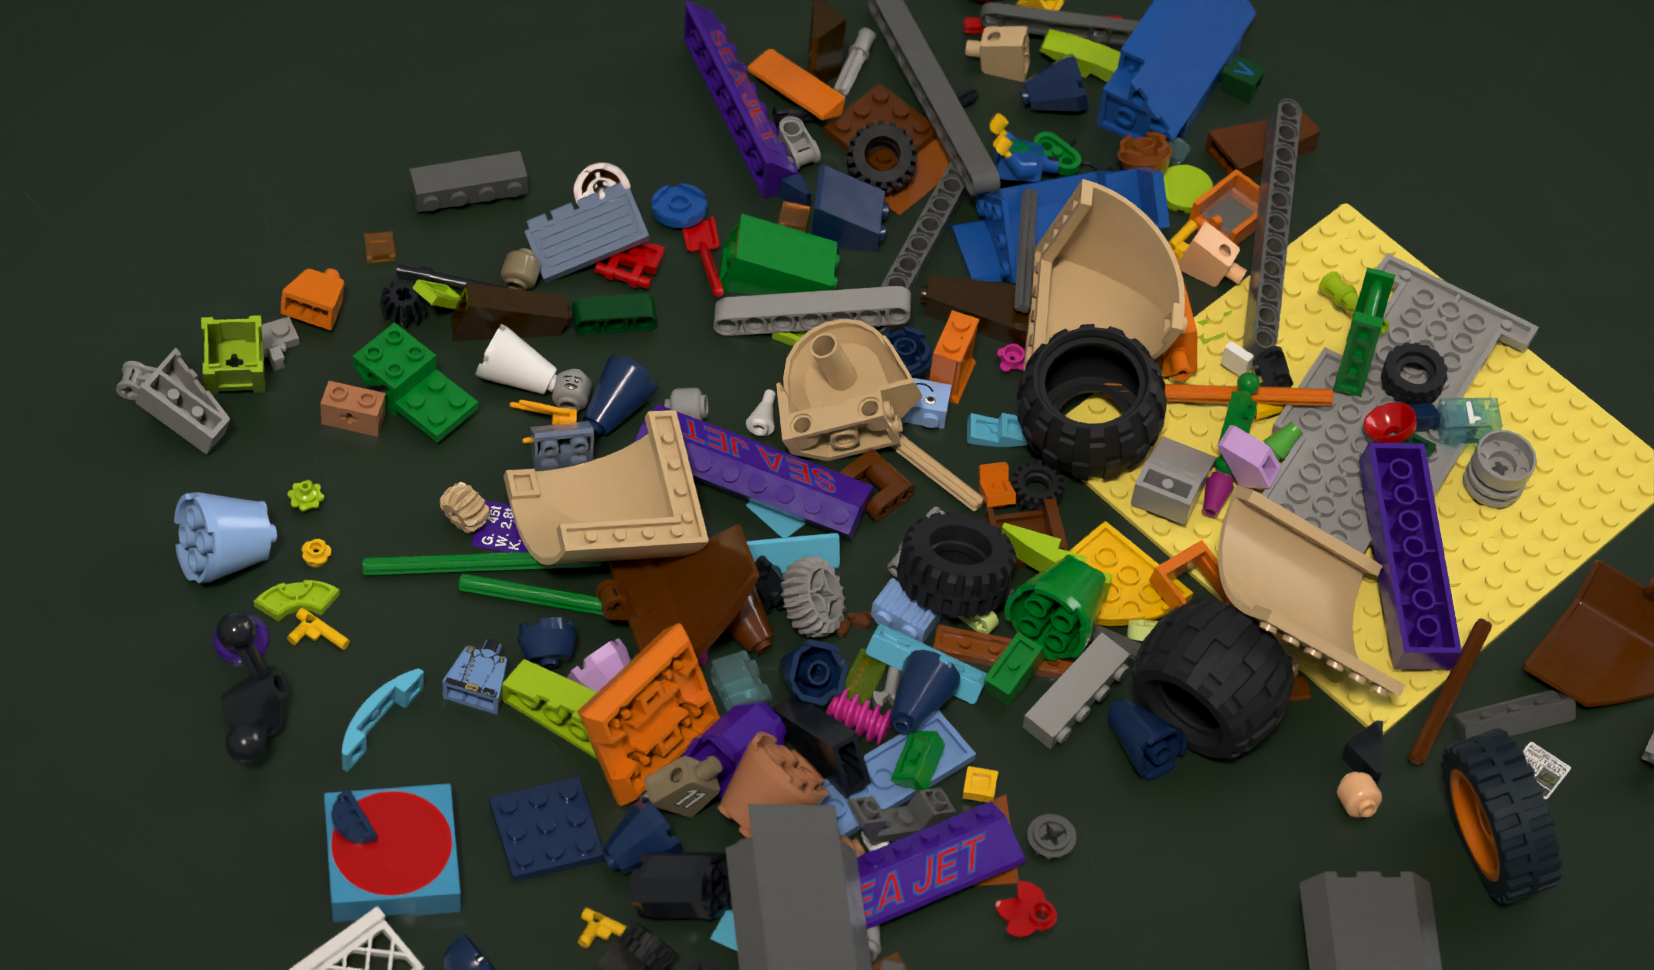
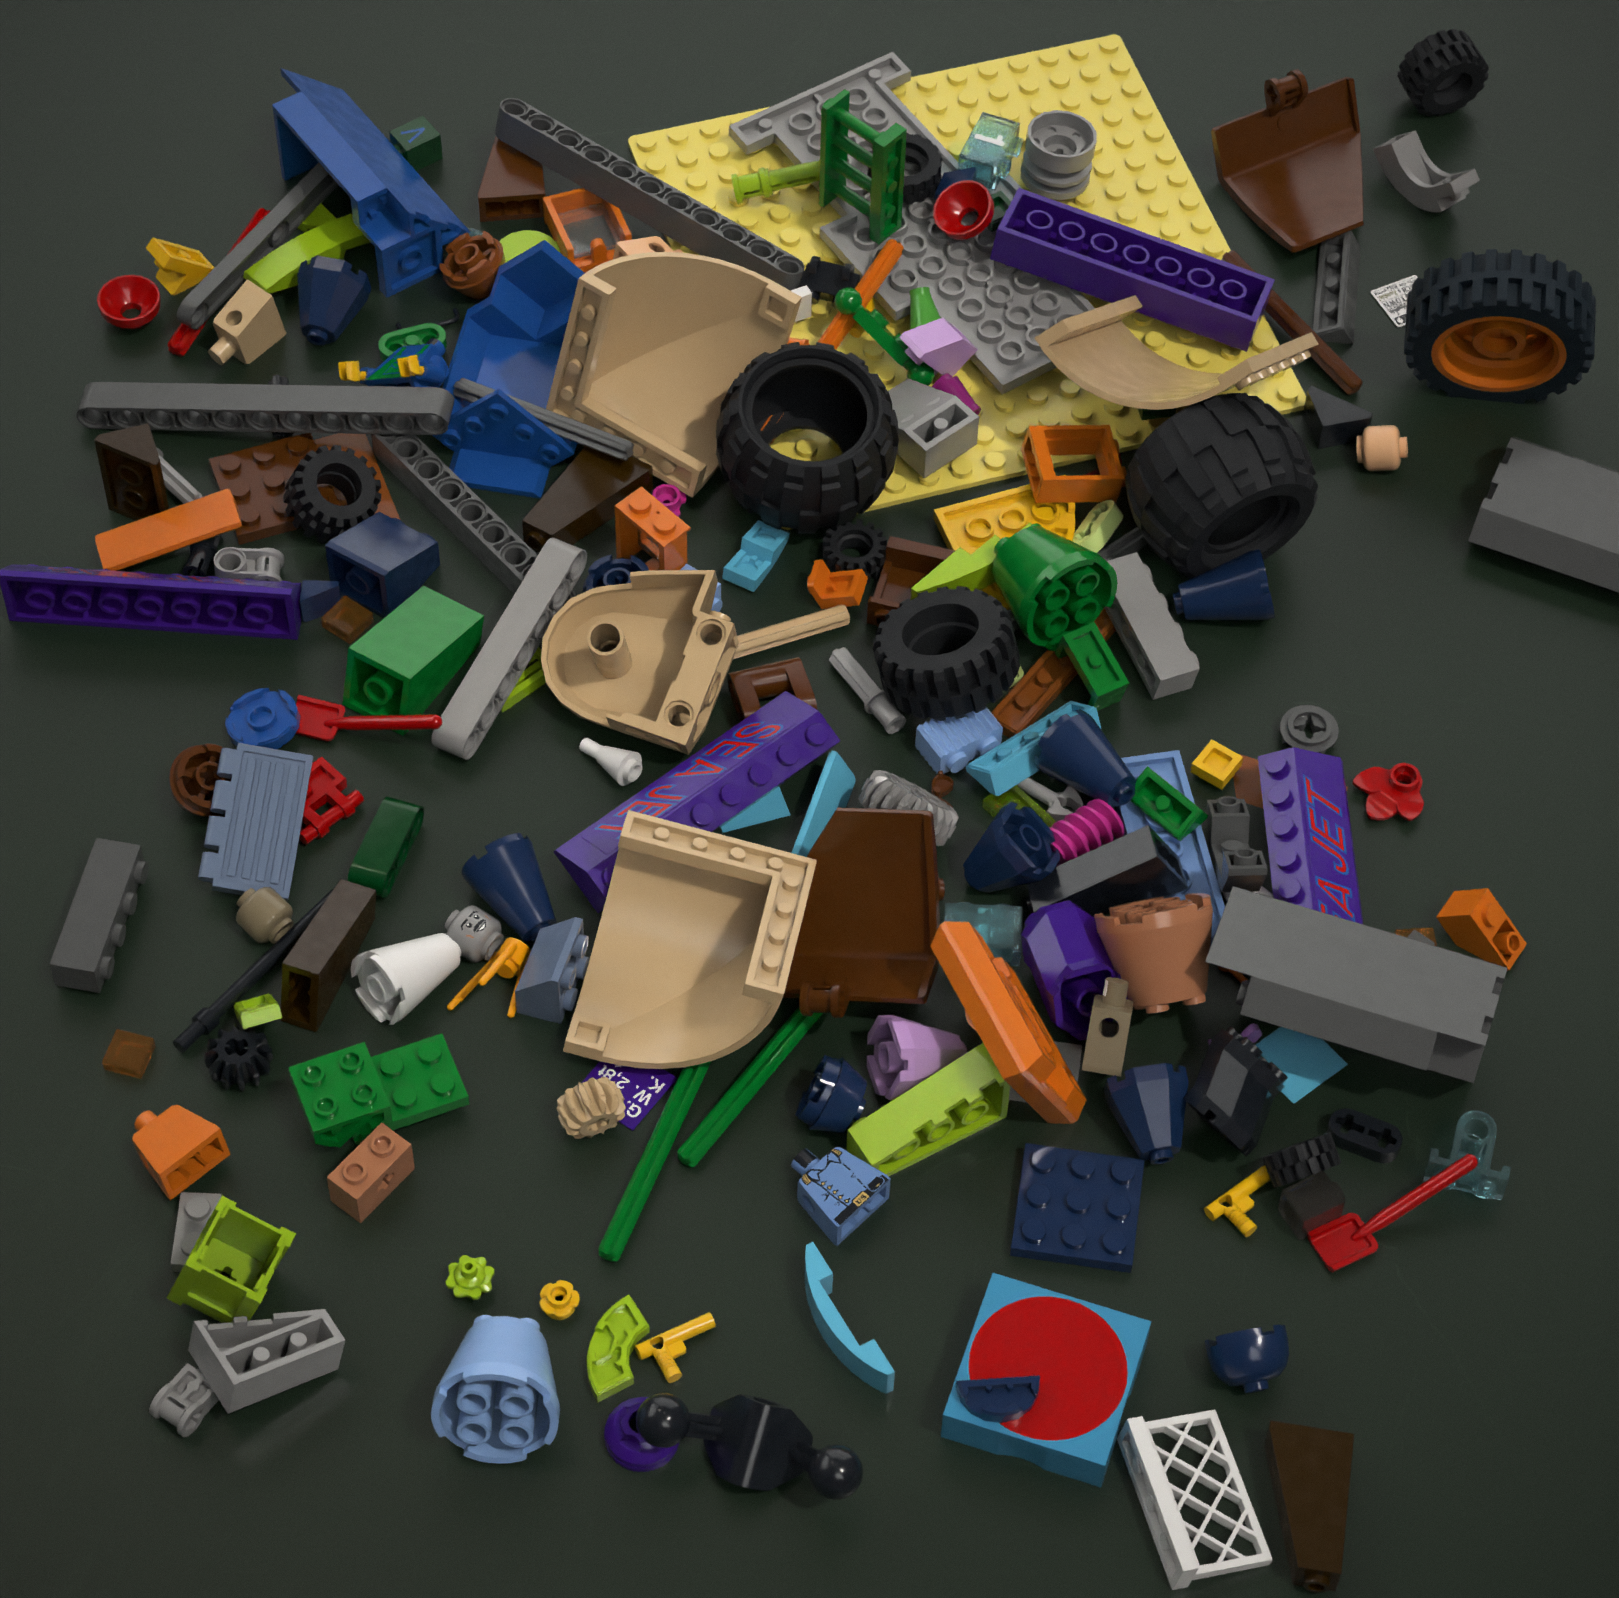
camera: 60 degrees left, 0 degrees up
(689, 402) = (561, 823): light grey head -> none

